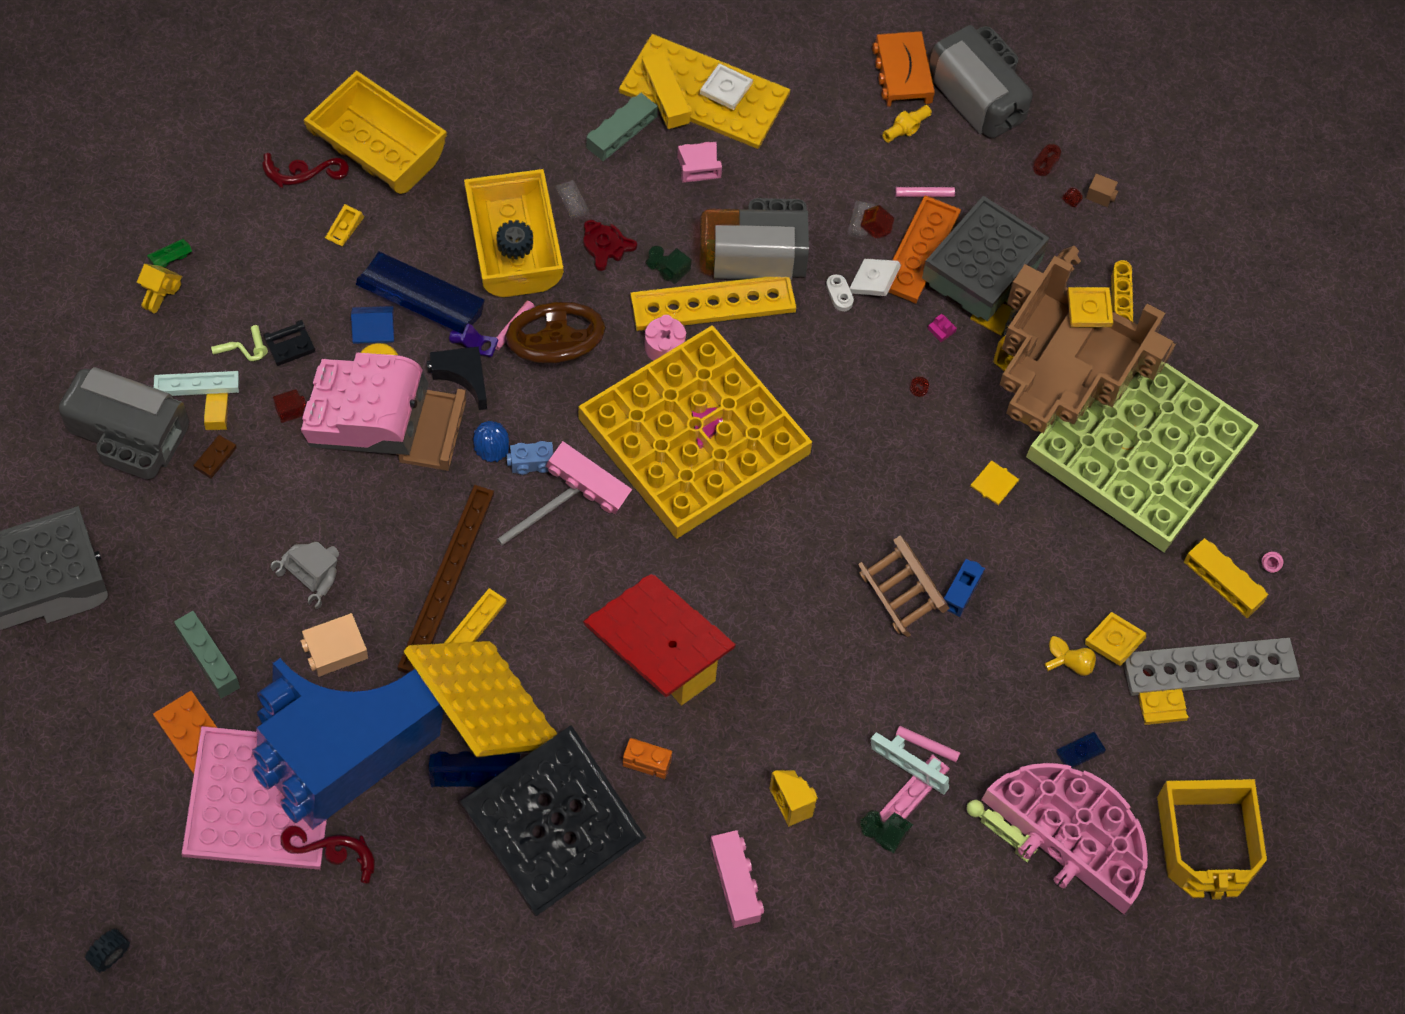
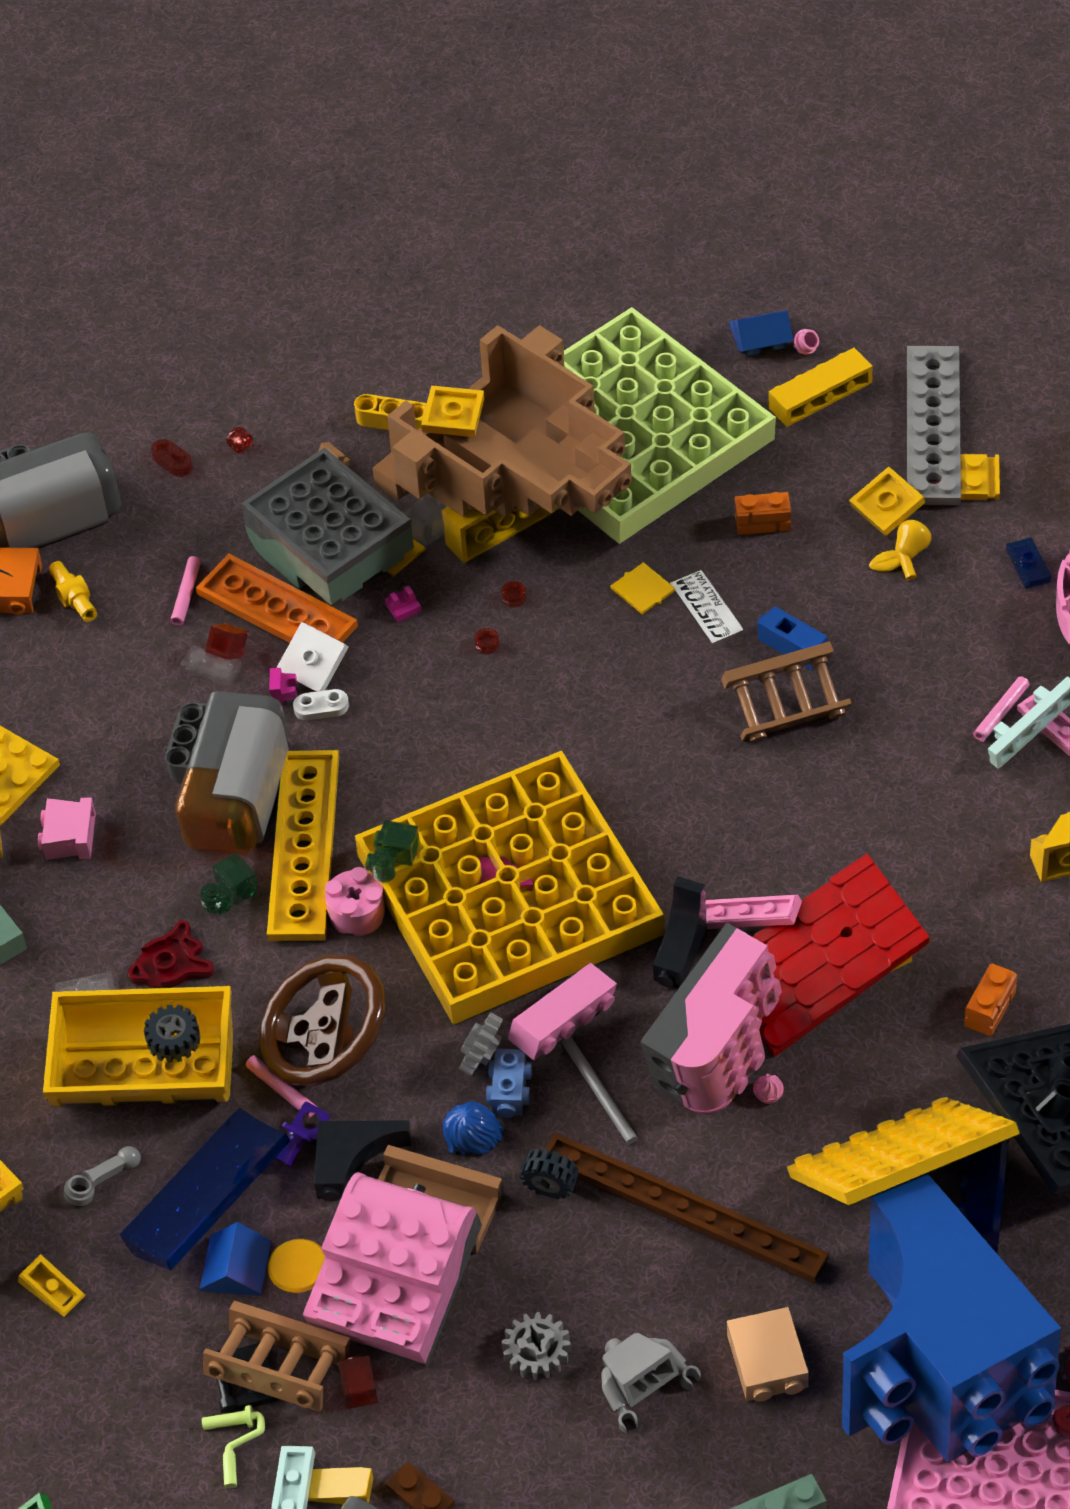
camera: 70 degrees left, 10 degrees down
(318, 351) = (285, 1333): none -> medium nougat fence
(326, 513) = (525, 1355): none -> light grey gear
(445, 248) = (127, 1158): none -> light grey piece
(456, 490) = (549, 1173): none -> black wheel
(478, 618) = (764, 1184): yellow plate -> none
(552, 621) = (768, 1088): none -> bright pink plate
(553, 431) = (480, 1043): none -> light grey gear
(574, 564) = (710, 1028): none -> bright pink piece
(662, 546) = (683, 934): none -> black arch
(692, 583) = (752, 911): none -> bright pink tile
(700, 344) = (393, 845): none -> clear green brick
(845, 262) = (280, 683): none -> dark pink tile
(964, 392) = (514, 600): none -> clear red bush
(987, 528) = (706, 606): none -> white sticker
(1081, 551) = (762, 513): none -> orange brick
(1102, 190) = (237, 408): medium nougat brick -> none
(1275, 528) = (762, 331): none -> blue slope

